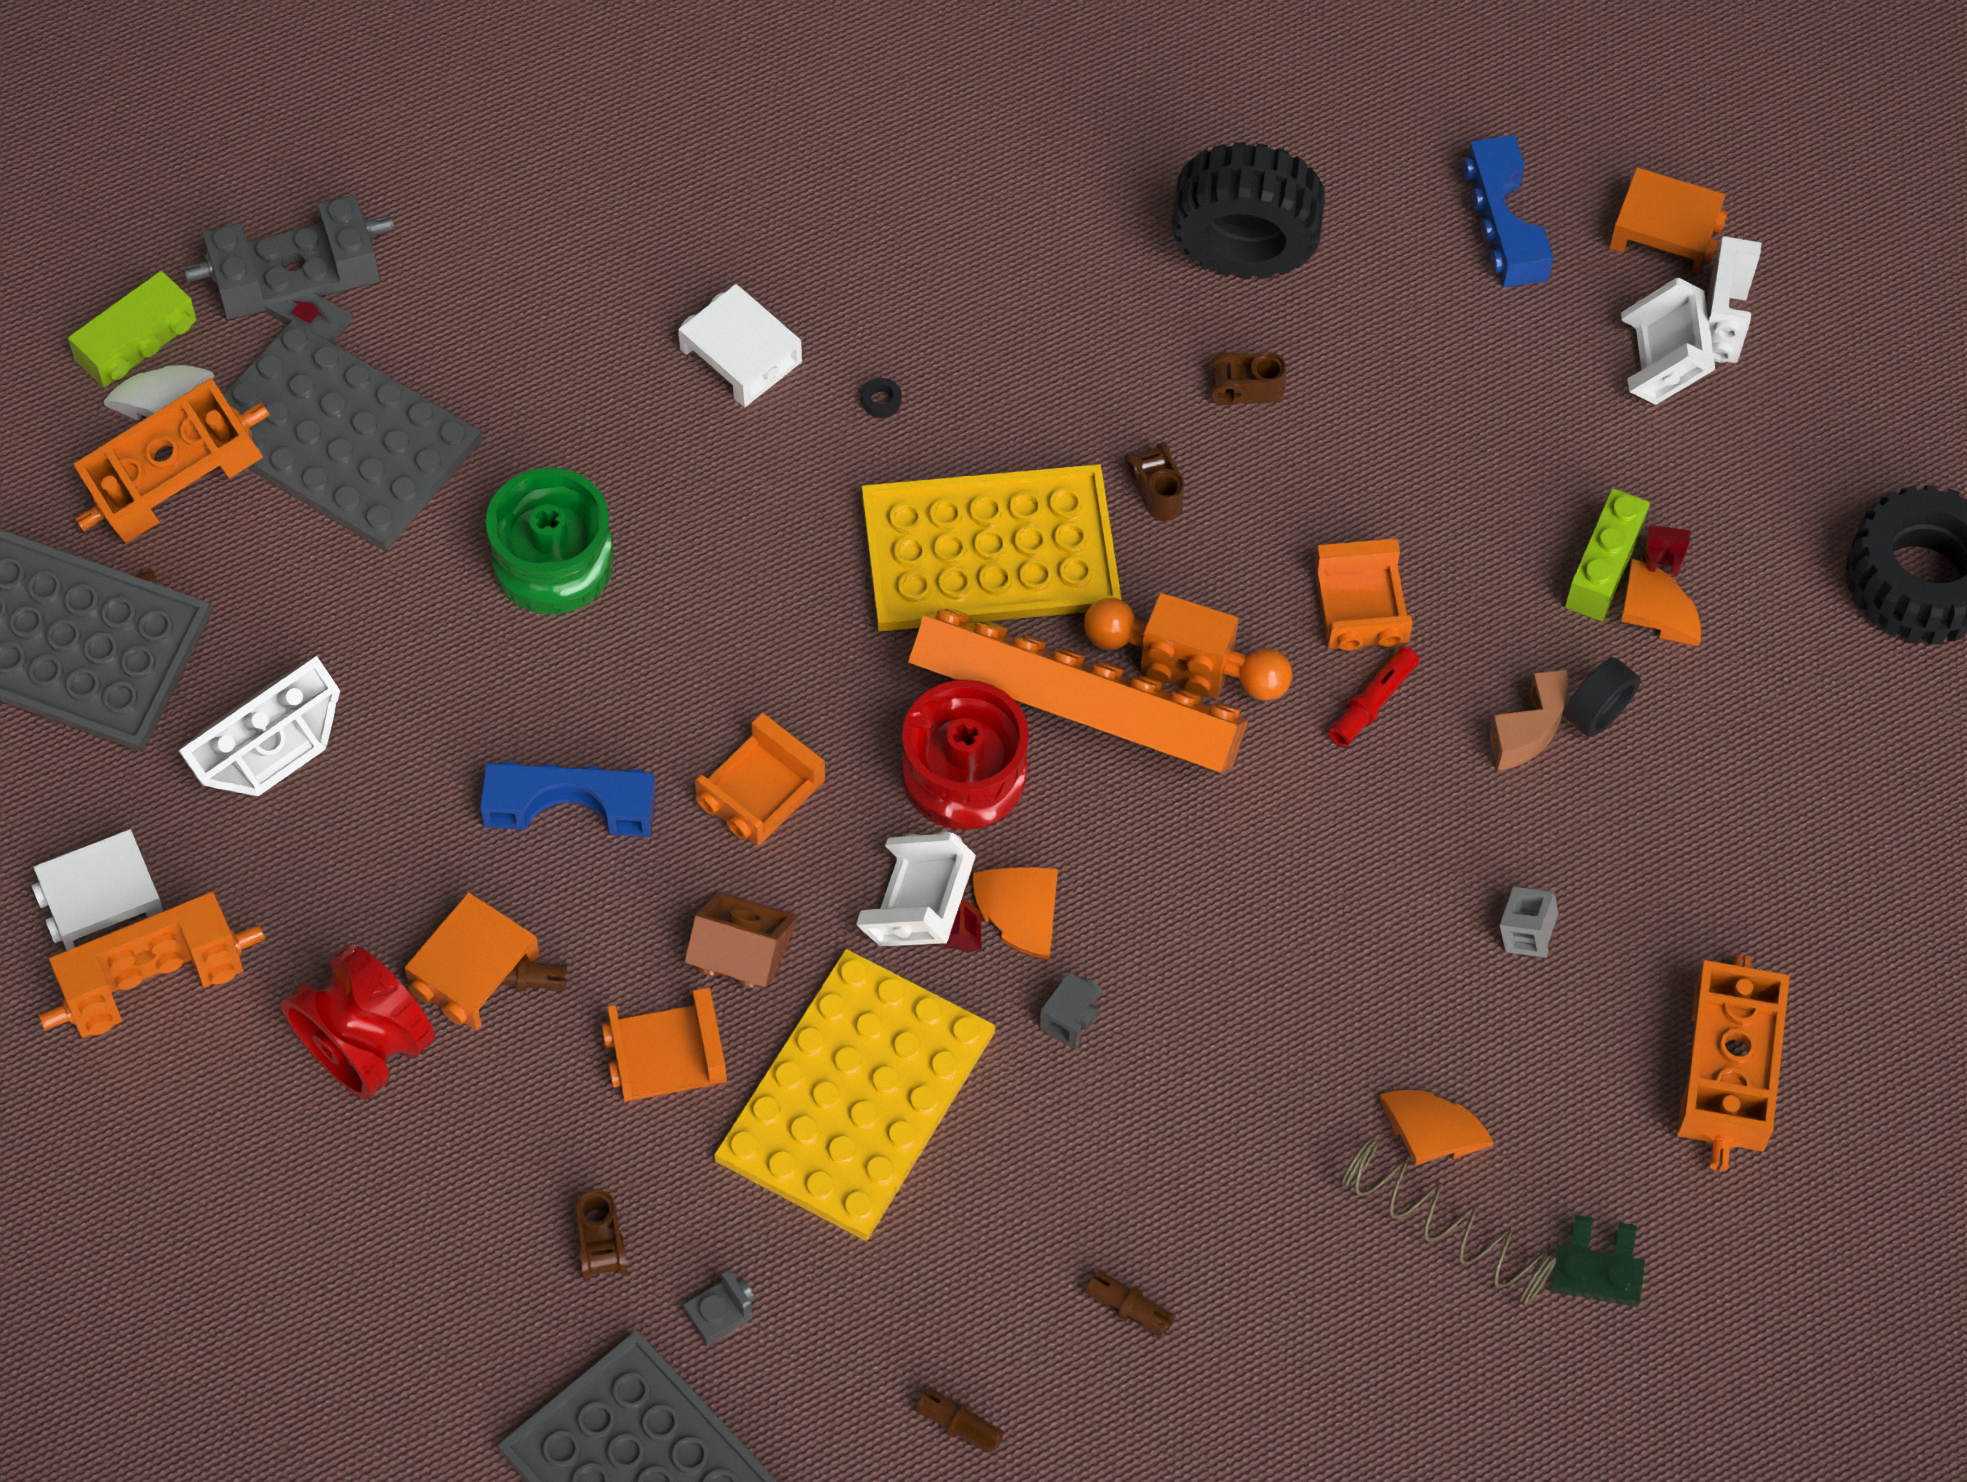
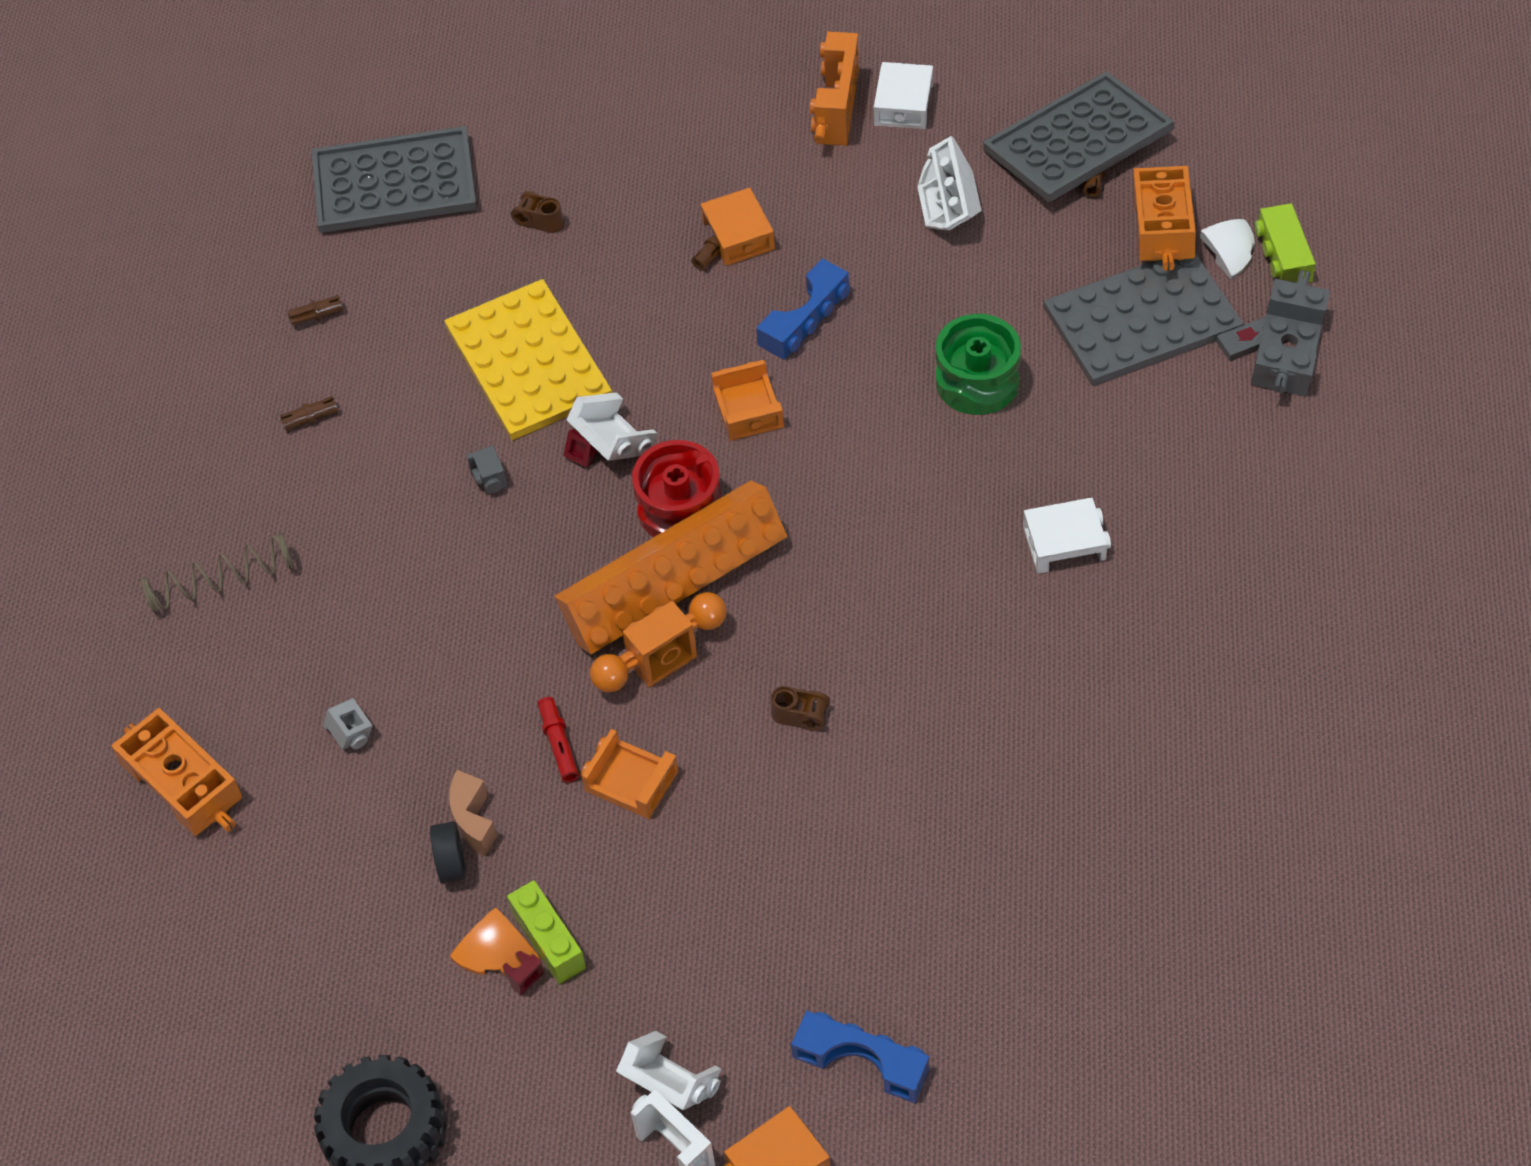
camera: 130 degrees right, 5 degrees down
(358, 1021) = (727, 146): red piece -> none
(666, 1049) = (622, 286): orange panel -> none
(721, 1308) = (460, 245): dark grey bracket -> none
(739, 939) = (656, 345): slope -> none
(881, 385) = (976, 588): black piece -> none
(990, 545) = (818, 594): yellow plate -> none
(1019, 905) = (572, 485): orange brick -> none
(1246, 378) = (840, 800): reddish brown piece -> none
(1248, 210) = (948, 845): black tyre -> none
(1433, 1125) = (277, 605): orange brick -> none
(1598, 1274) = (133, 633): clear green plate -> none

